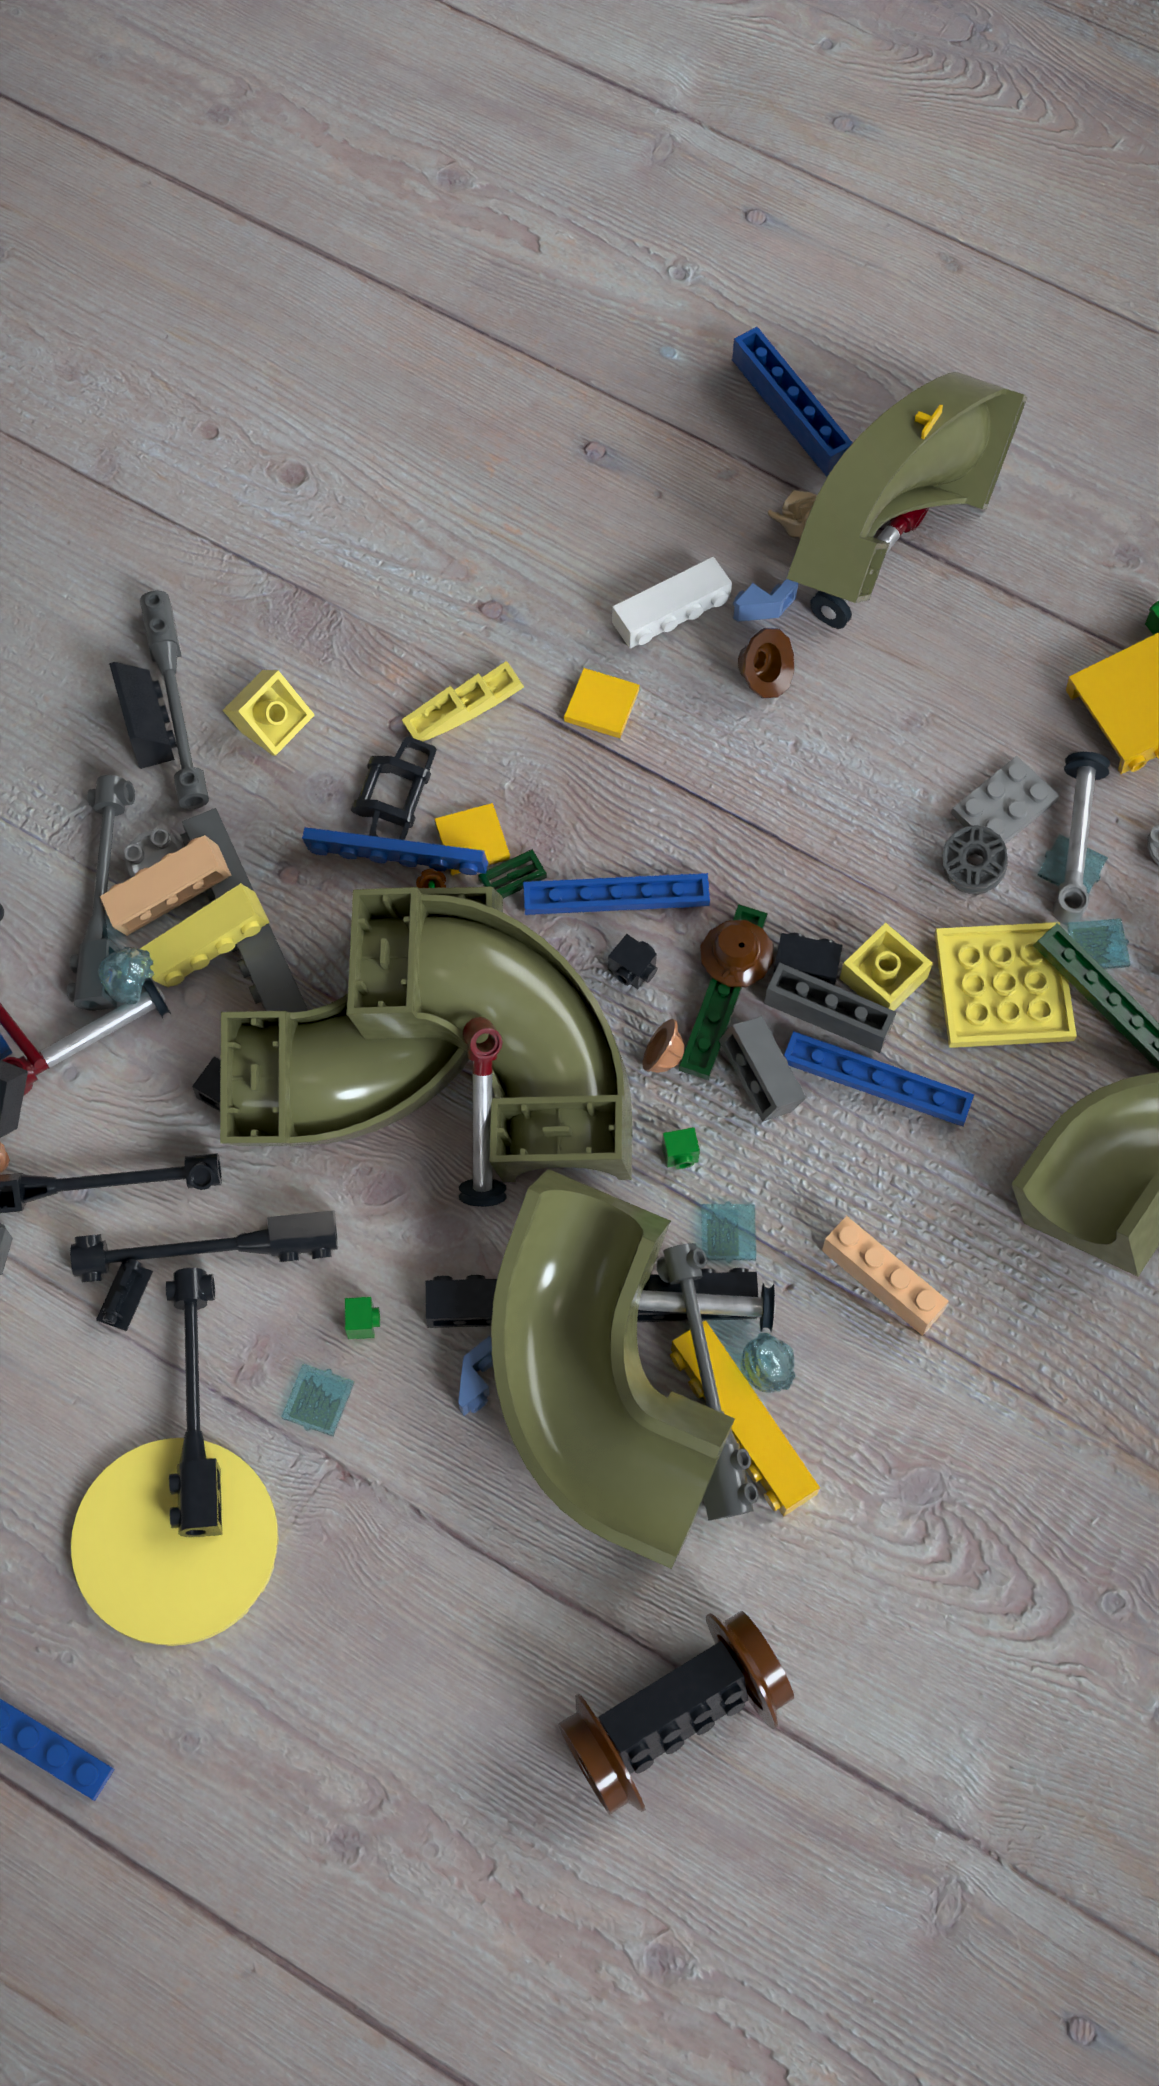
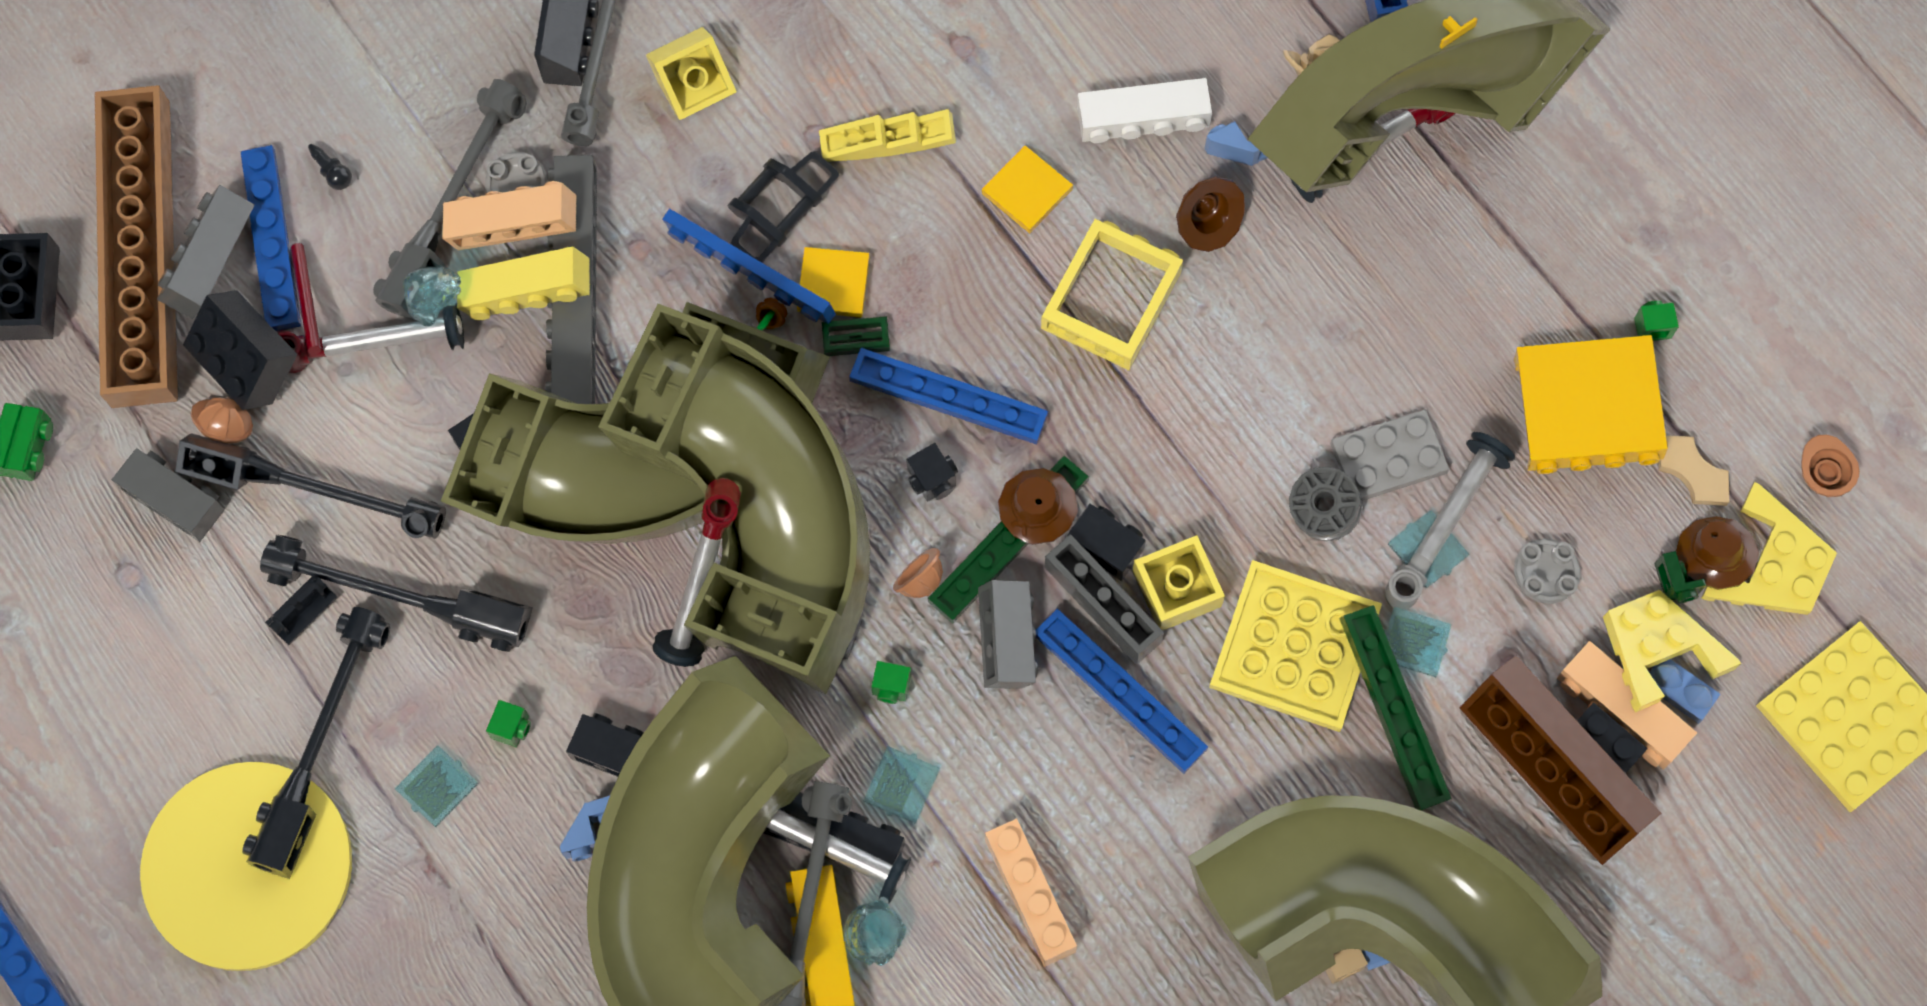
camera: 25 degrees right, 5 degrees up
(707, 800) = (1090, 337): none -> light yellow window

